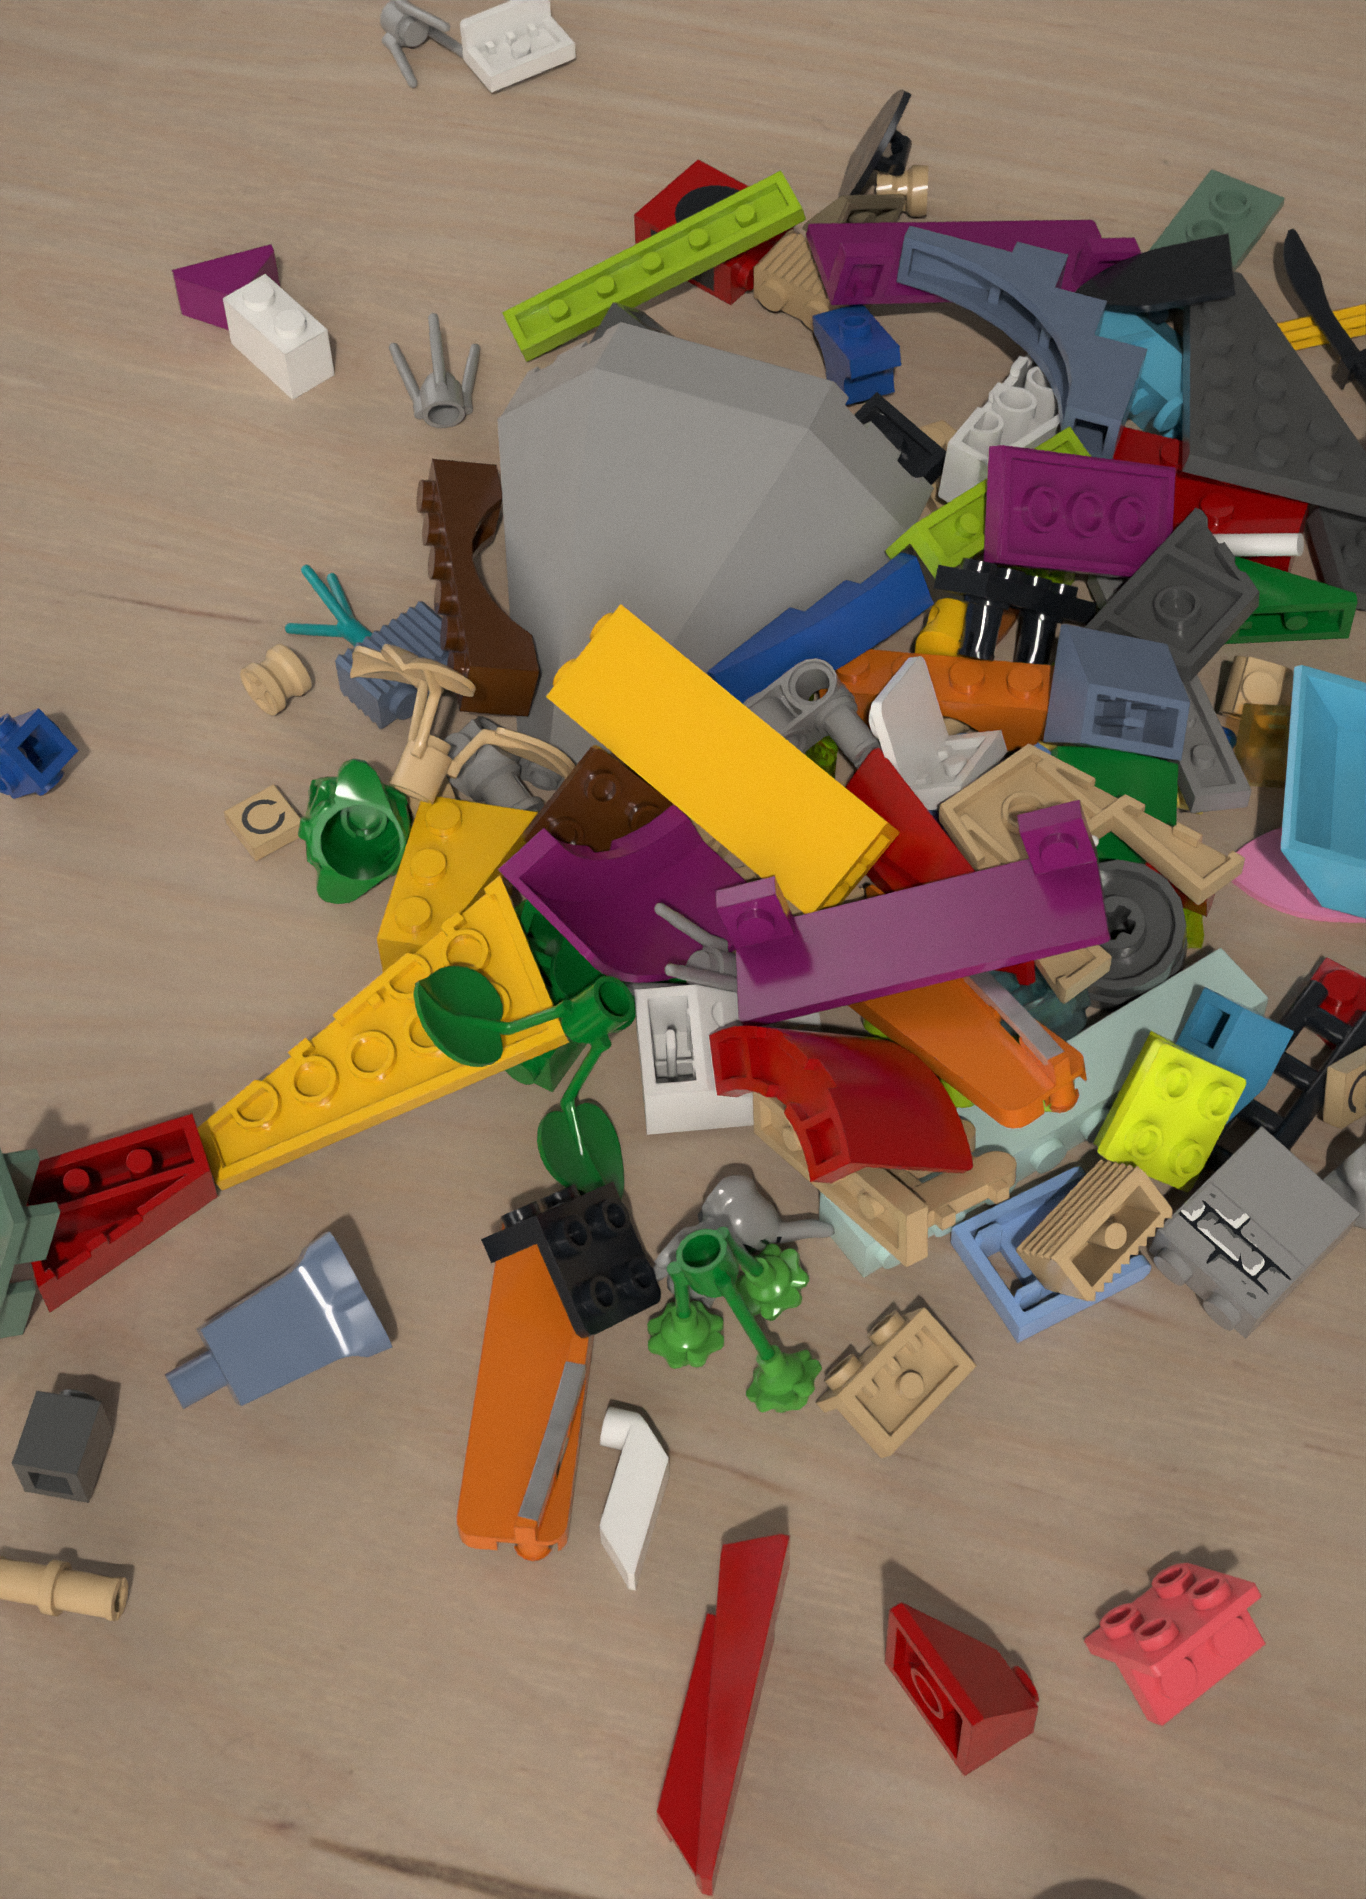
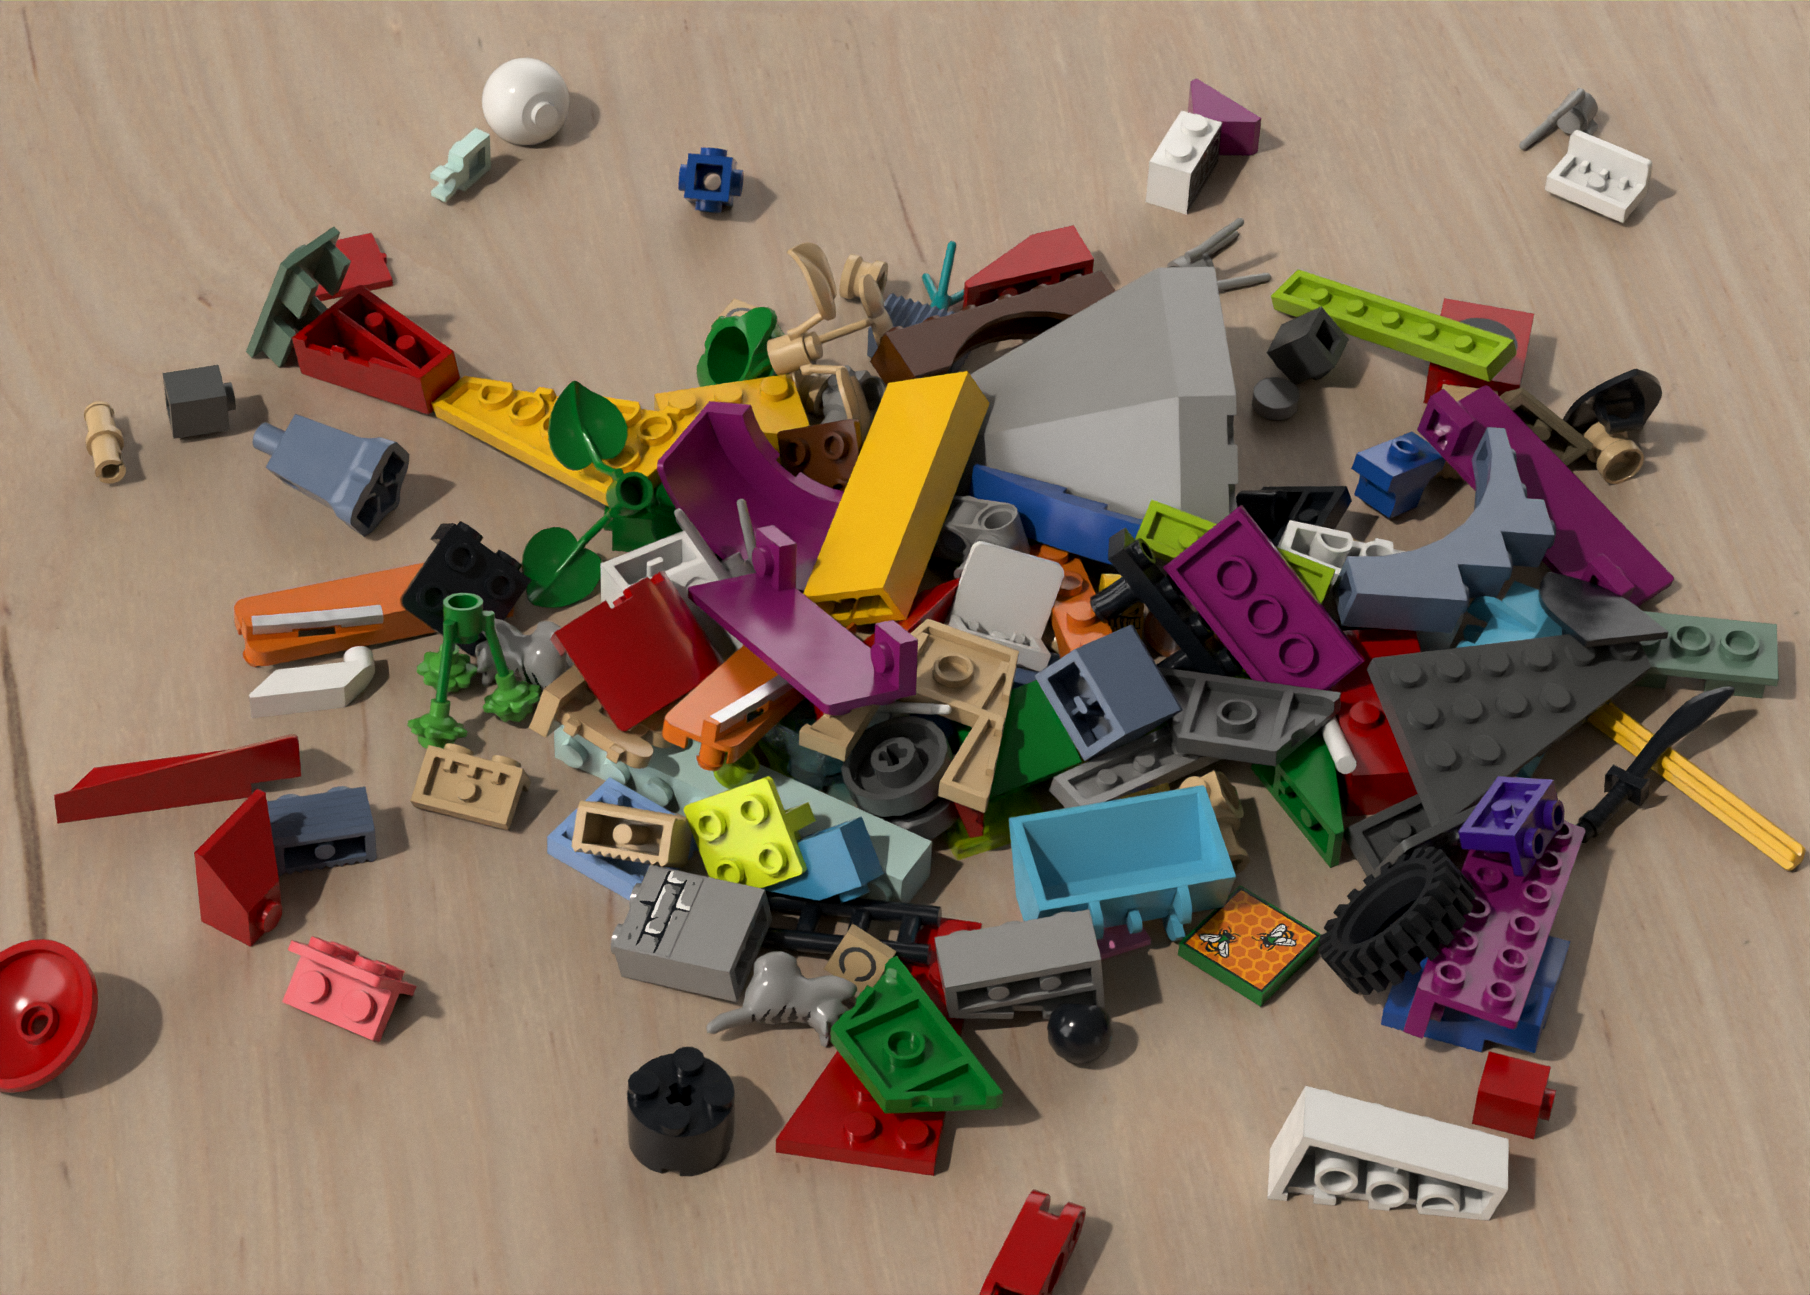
camera: 60 degrees right, 10 degrees down
(363, 519) = (1037, 260): none -> red slope
(897, 1561) = (322, 829): none -> sand blue brick

